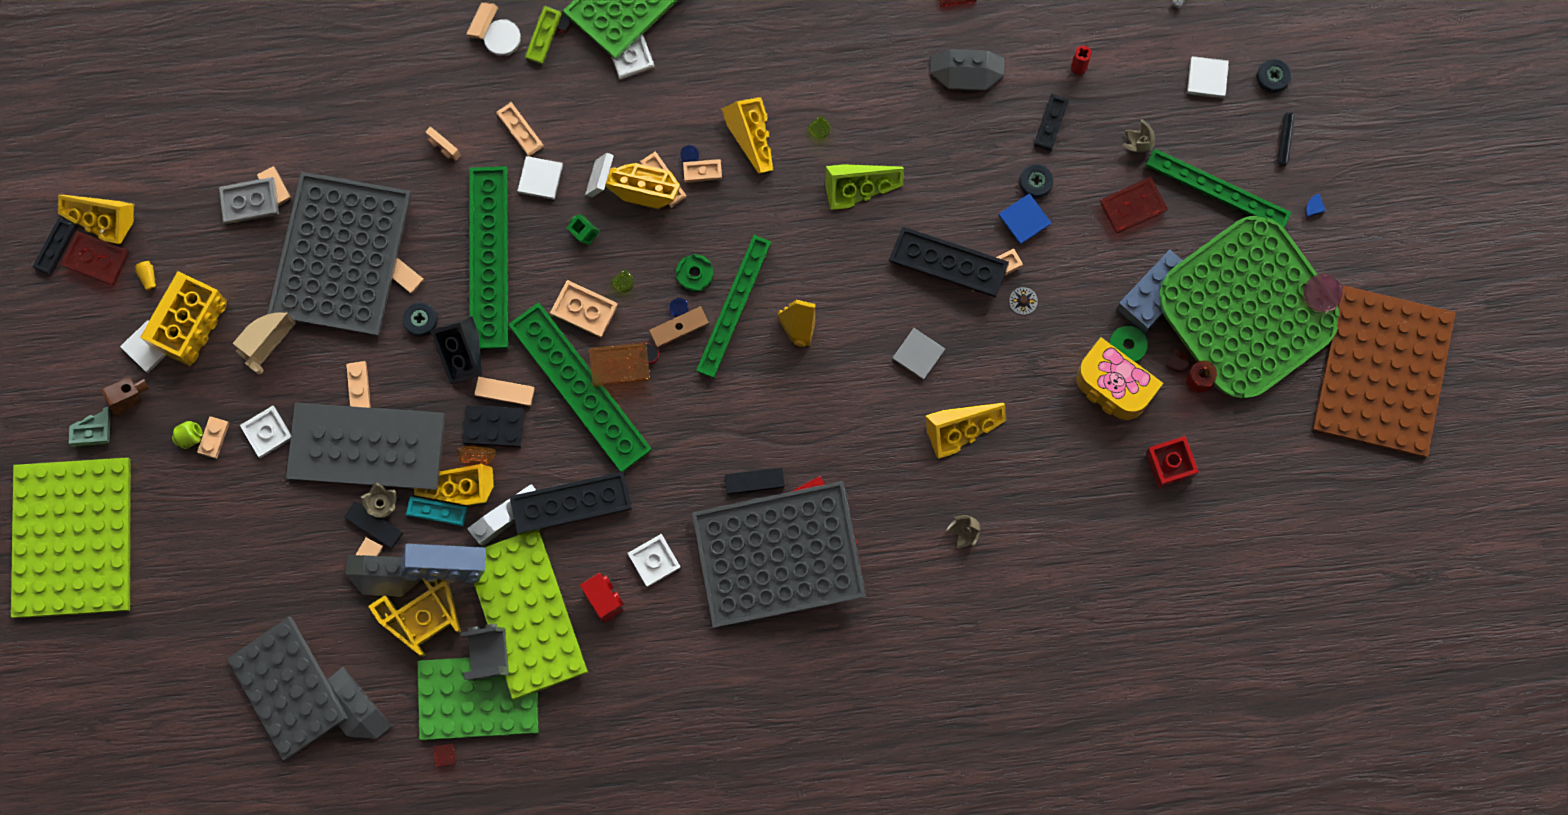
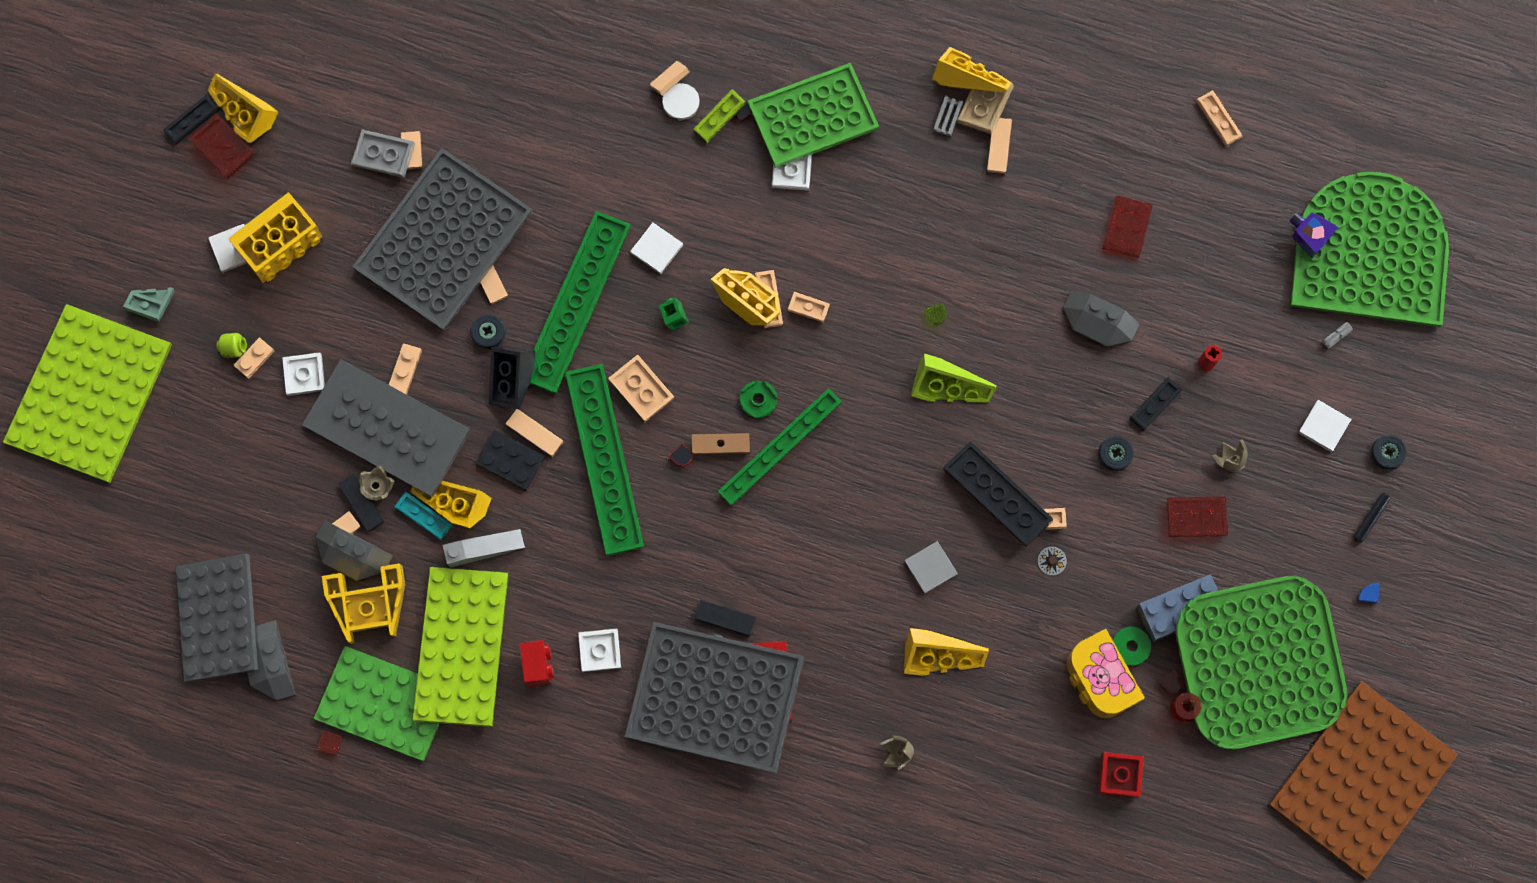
camera: 20 degrees right, 0 degrees up
(124, 395) = (191, 284): reddish brown torso -> none
(146, 274) = (260, 181): yellow cone -> none
(262, 338) = (337, 286): tan piece -> none
(436, 139) = (577, 171): light nougat plate -> none
(442, 562) = (405, 567): sand blue brick -> none
(477, 453) = (482, 479): clear orange tile -> none
(487, 652) = (409, 667): dark grey panel -> none
(519, 129) = (658, 194): light nougat tile -> none
(570, 503) = (547, 563): black plate -> none
(599, 175) = (711, 270): white tile -> none
(619, 364) = (650, 454): clear orange tile -> none
(623, 281) = (689, 378): clear neon green tile -> none
(678, 307) = (729, 425): clear blue tile -> none
(689, 154) = (804, 286): clear blue tile -> none
(747, 124) = (869, 284): yellow wedge -> none
(798, 322) = (831, 489): yellow wedge -> none
(1024, 219) = (1088, 484): blue tile -> none
(1216, 188) = (1284, 536): green plate -> none
(1322, 293) = (1337, 680): clear pink tile -> none

